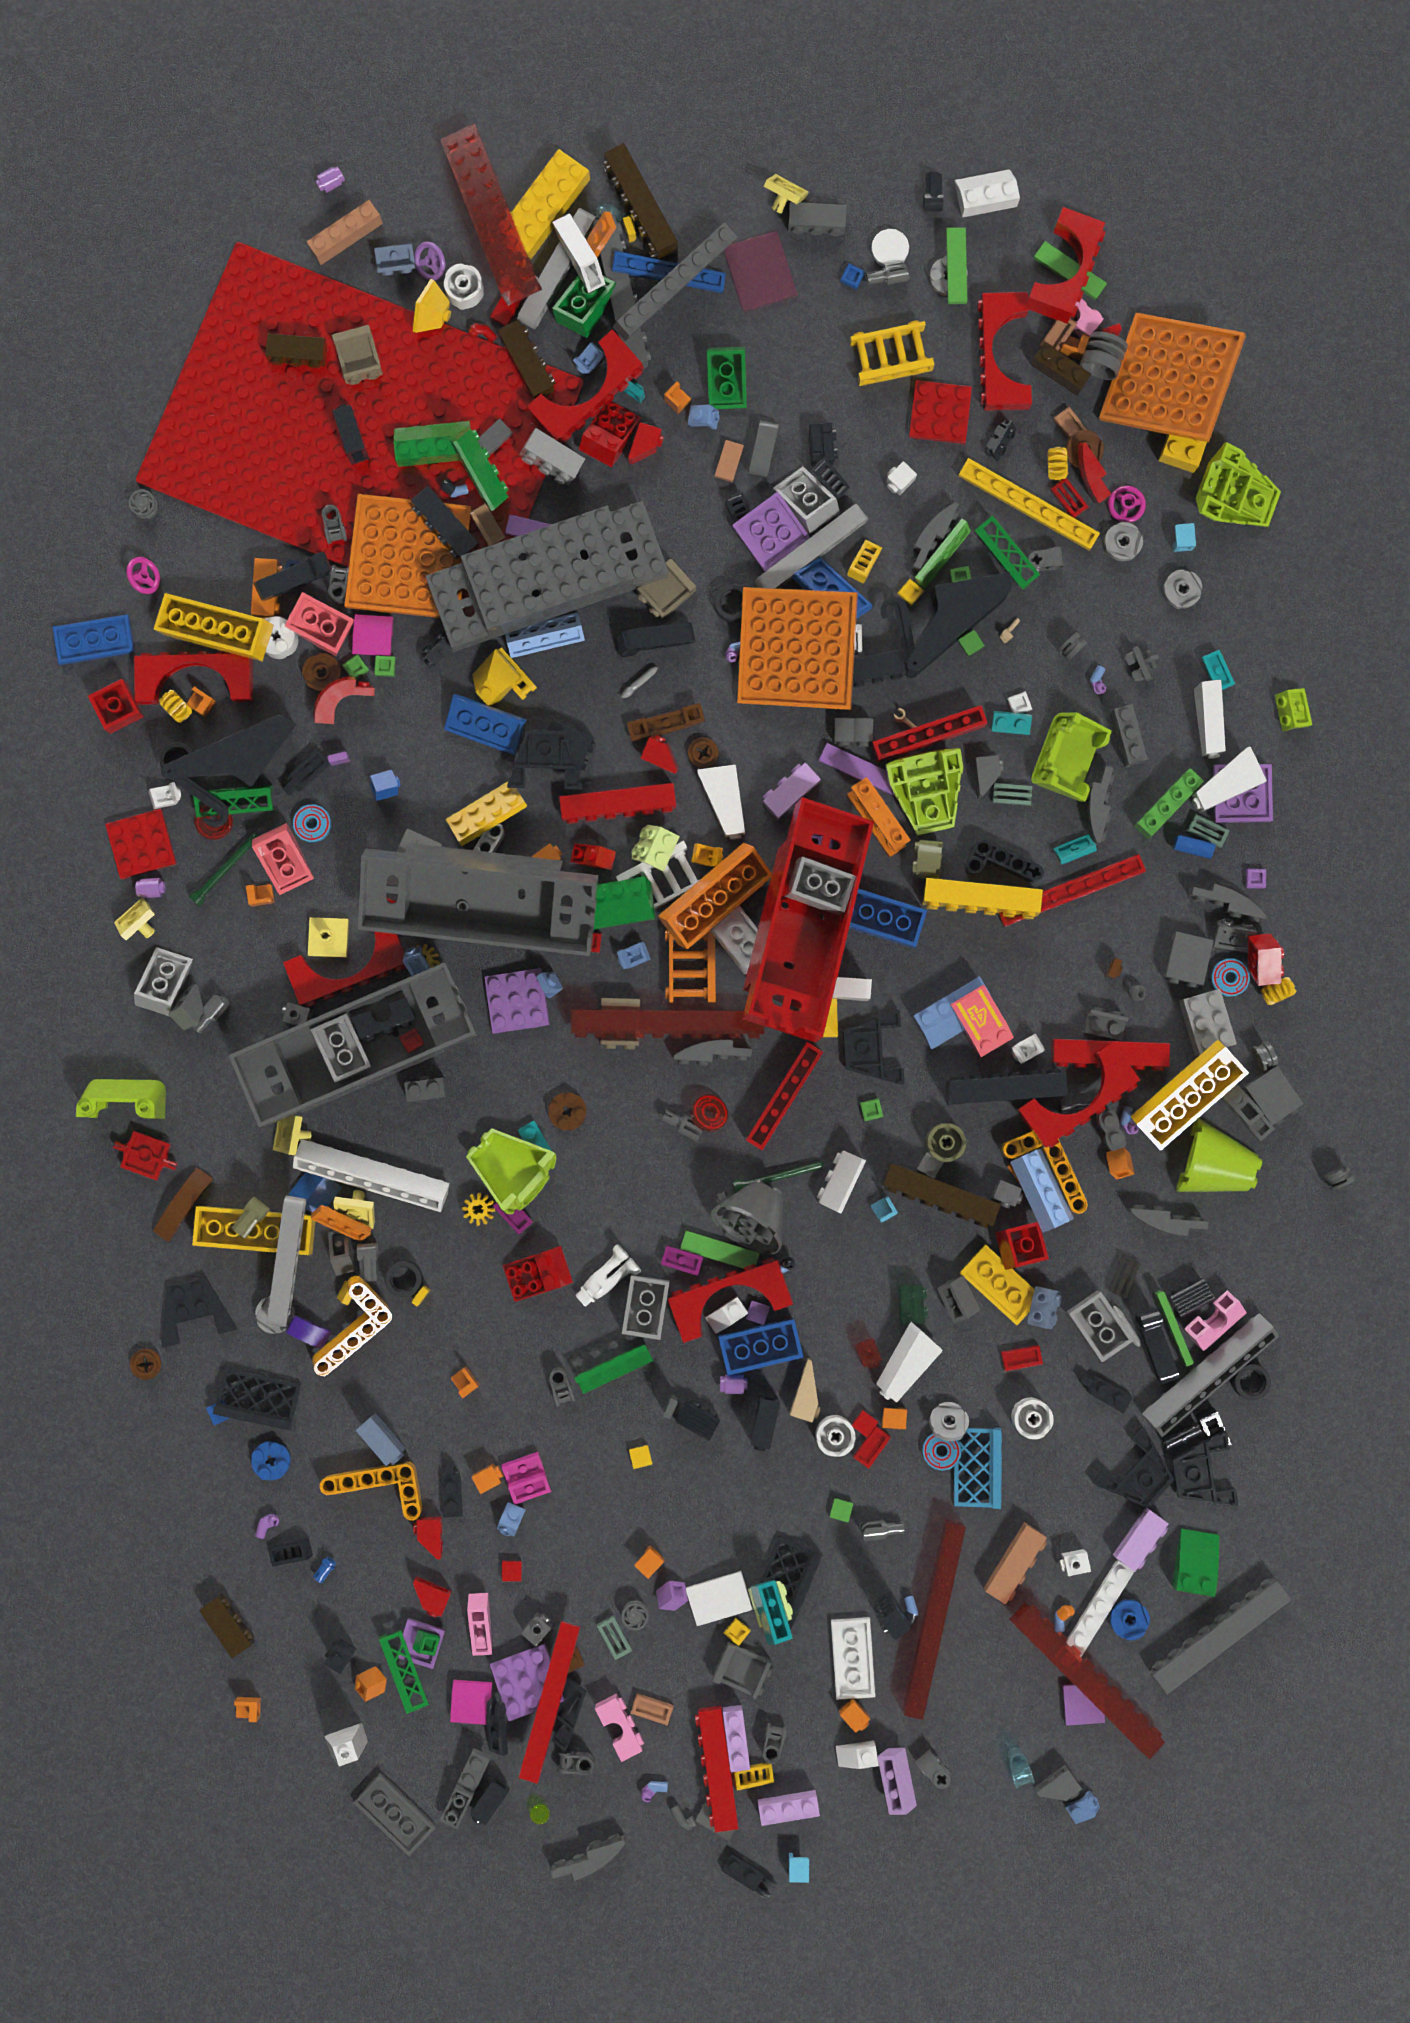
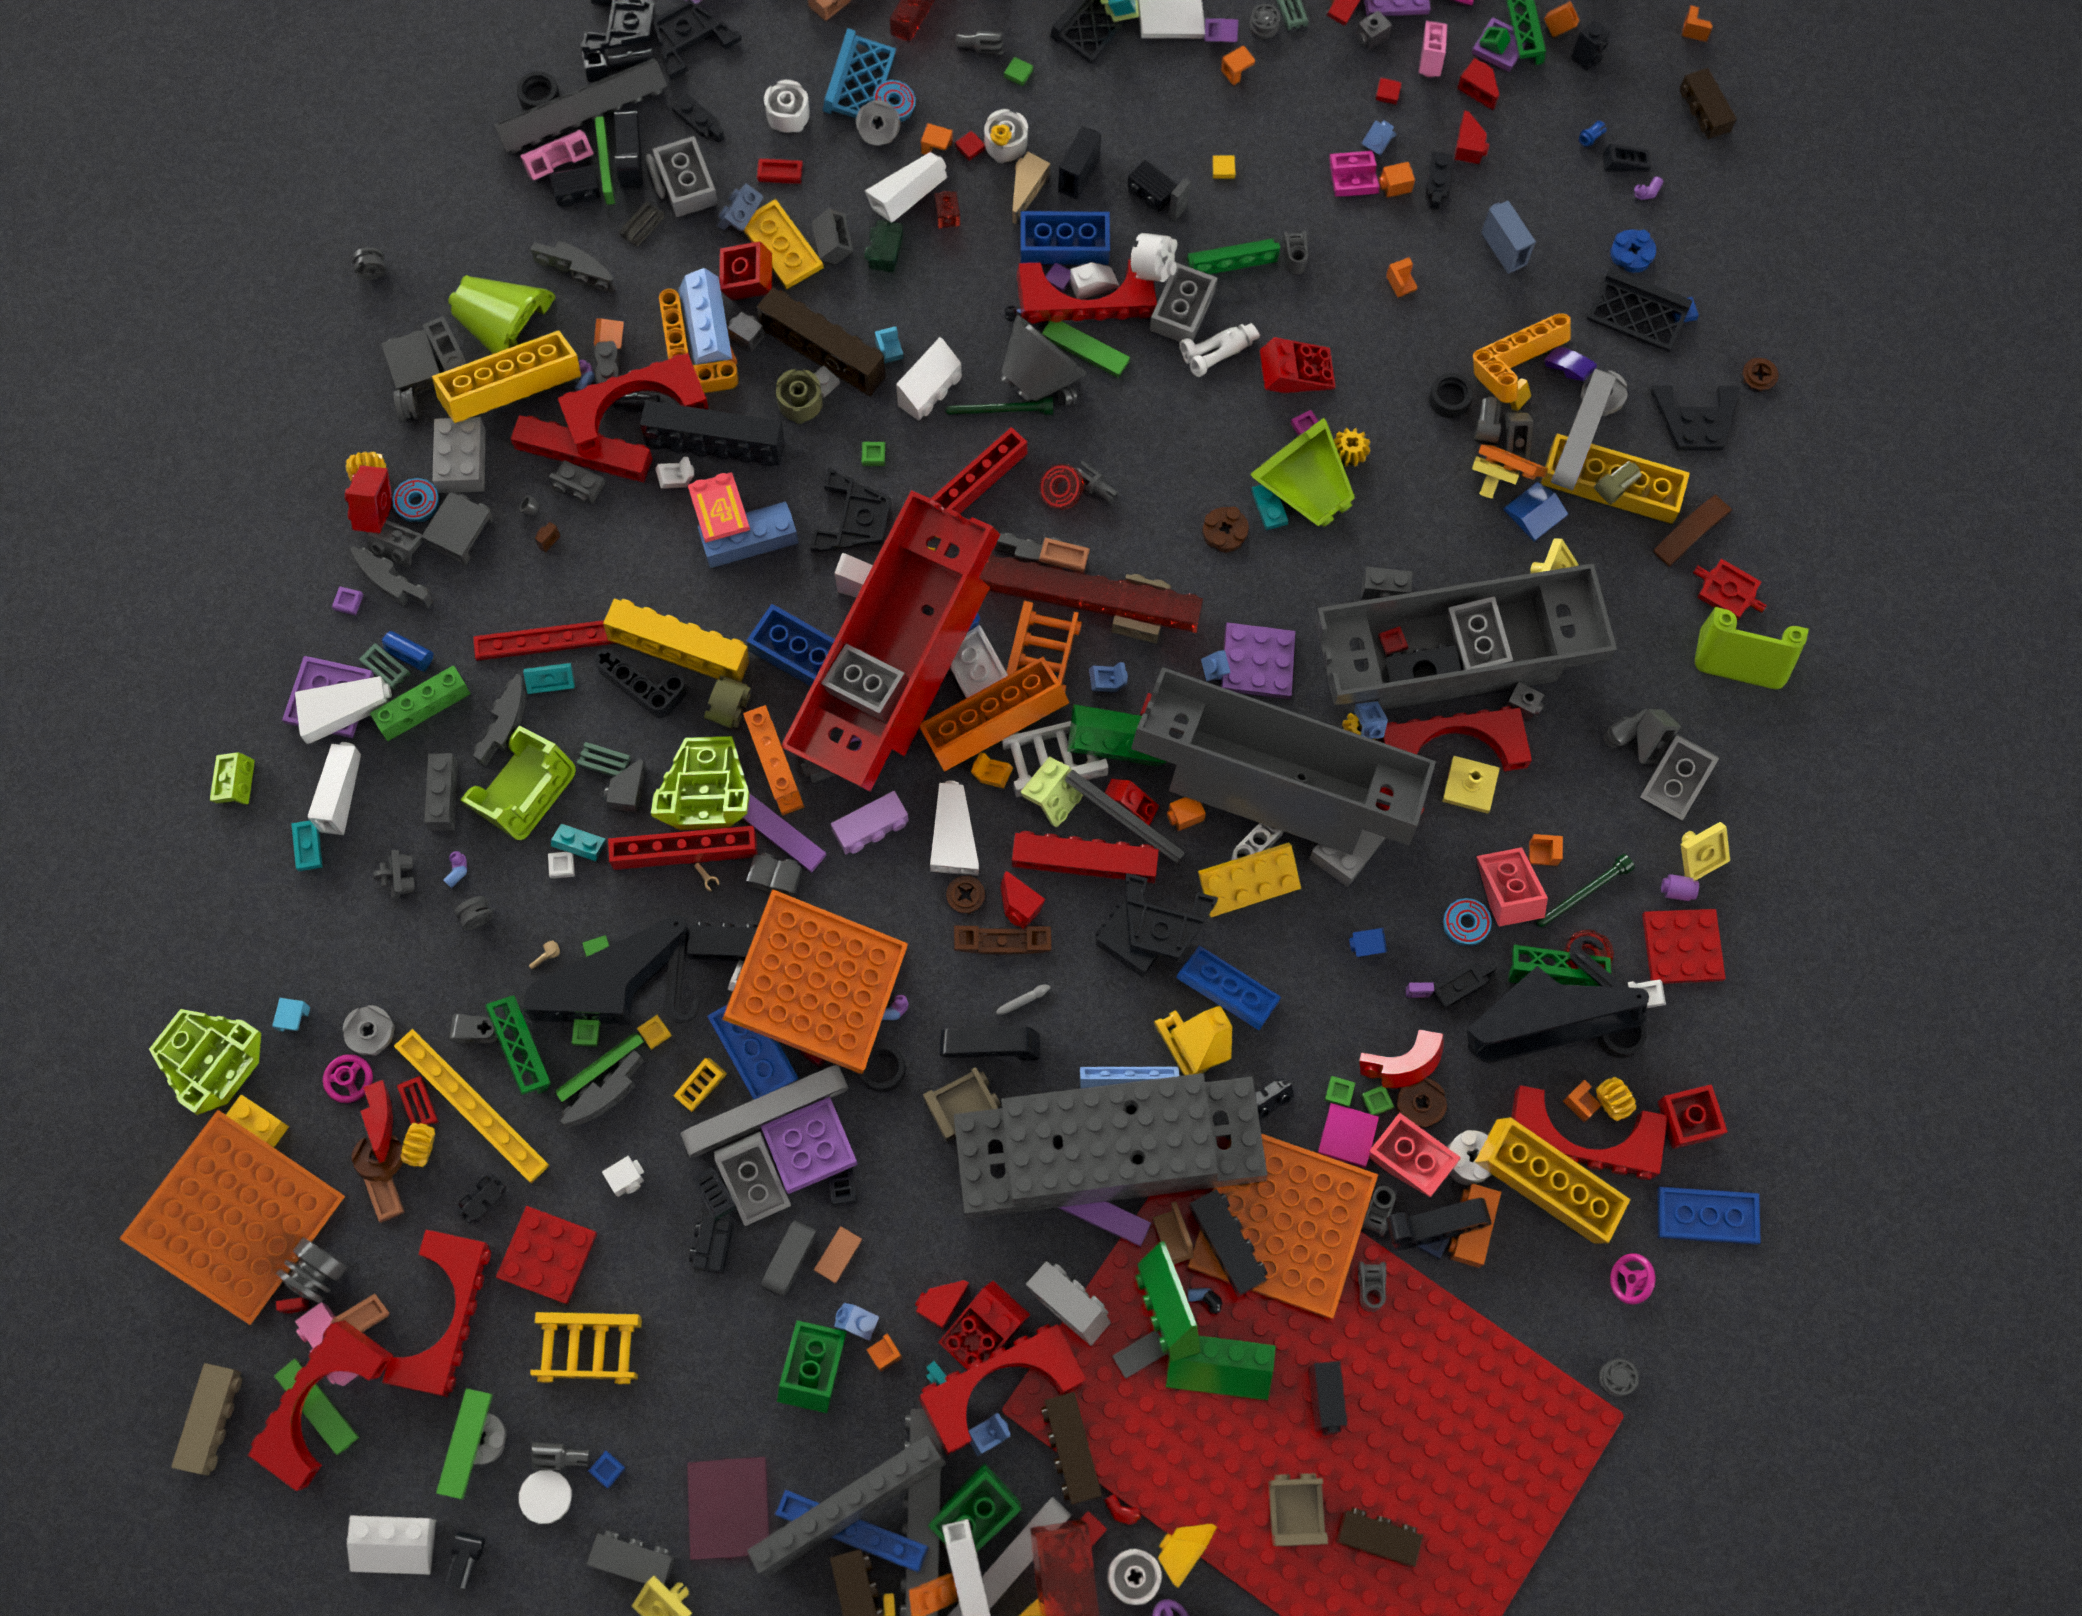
camera: 165 degrees left, 15 degrees down
(371, 1175) = (1468, 506): white brick -> none
(378, 1480) = (1539, 203): light orange beam -> none
(420, 1295) = (1434, 372): yellow tile -> none
(594, 837) = (1124, 816): none -> dark grey axle
(678, 1332) = (1154, 257): none -> white brick
(682, 1260) = (1131, 345): magenta plate -> none
(692, 1047) = (1064, 555): none -> nougat tile
(733, 1384) = (1101, 205): medium lavender brick -> none
(838, 1431) = (998, 139): none -> yellow plate
(871, 1447) = (969, 120): red tile -> none
(1061, 369) = (372, 1270): dark brown brick -> none
(1074, 347) = (342, 1297): orange panel -> none
(1143, 242) = (207, 1419): none -> dark tan brick
(1184, 578) = (303, 947): light grey plate -> none

